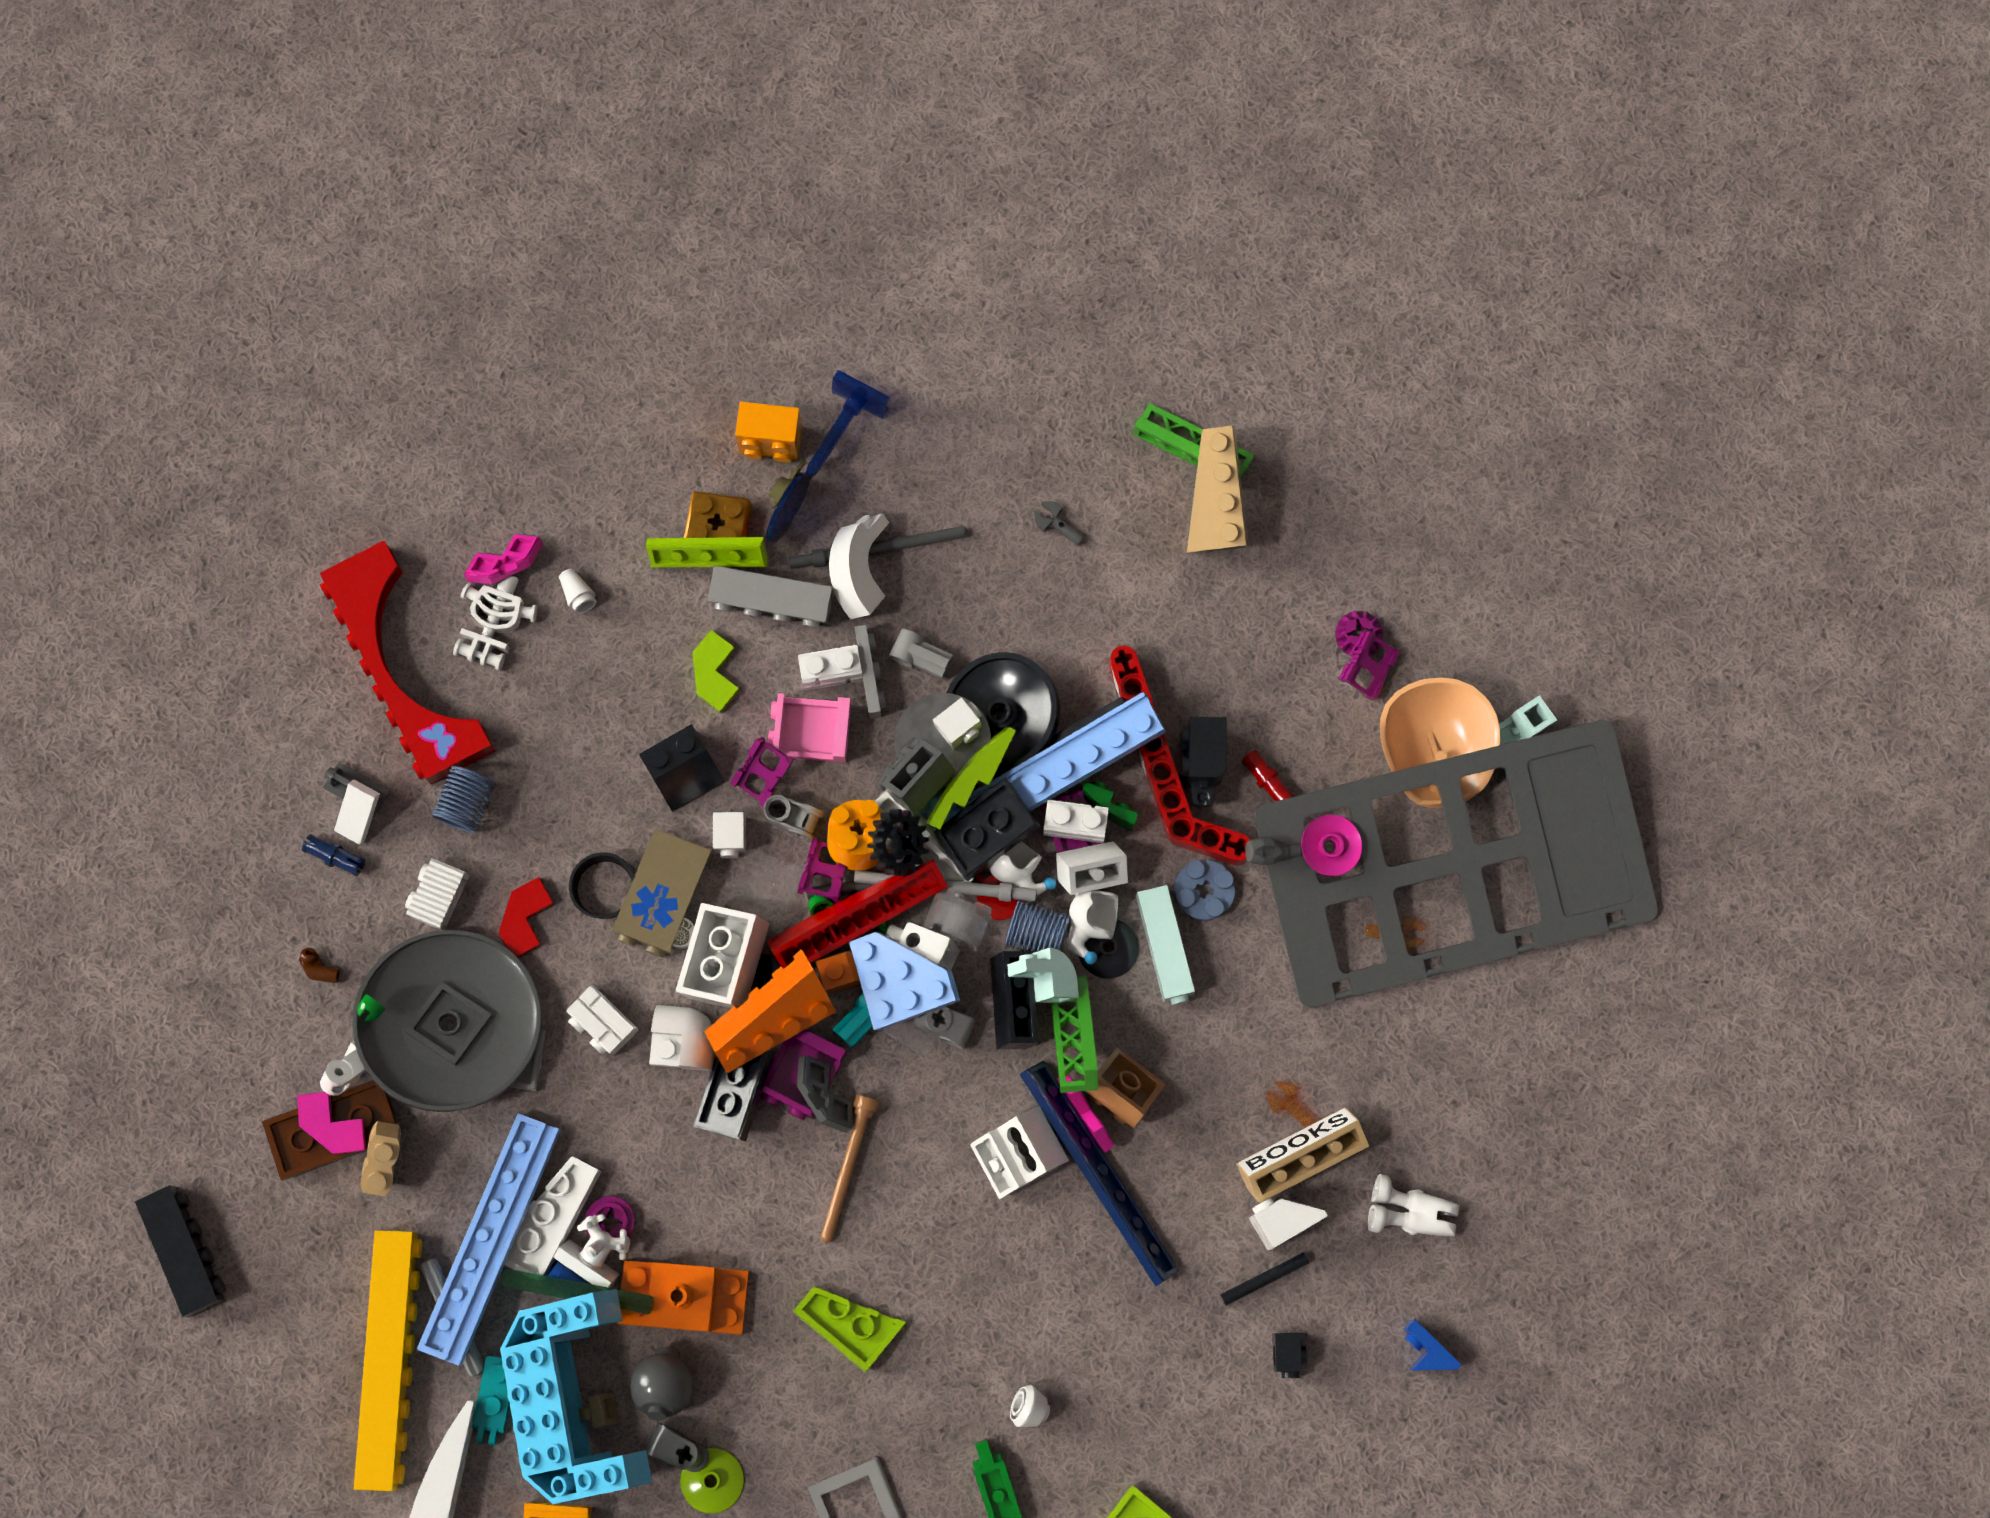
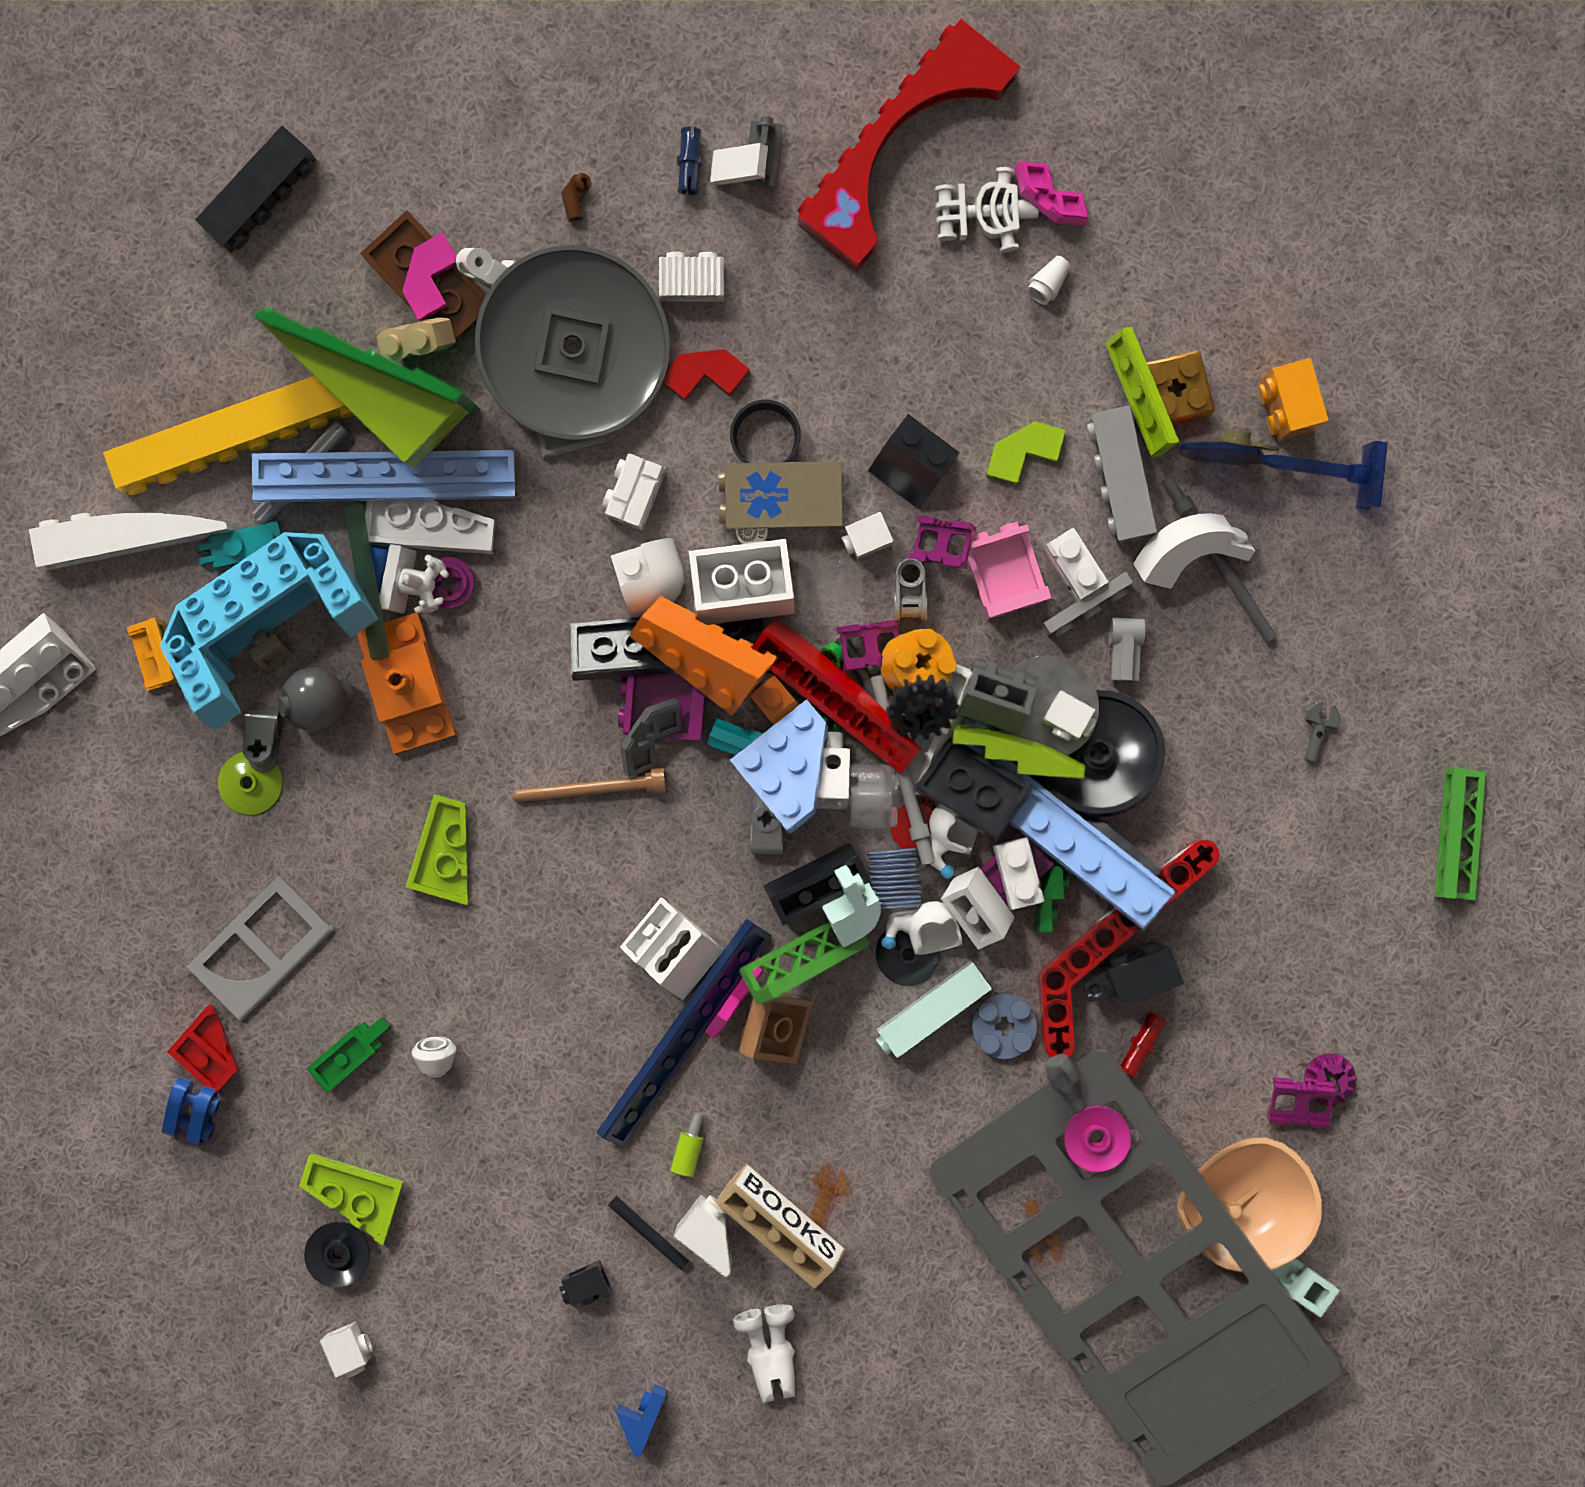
camera: 70 degrees right, 10 degrees up
(371, 1006) = (552, 264): green hinge -> none
(419, 1200) = (398, 405): none -> lime piece
(454, 808) = (790, 265): sand blue piece -> none
(1202, 1210) = (688, 1148): none -> lime piece
(1218, 496) = (1408, 885): tan wedge -> none

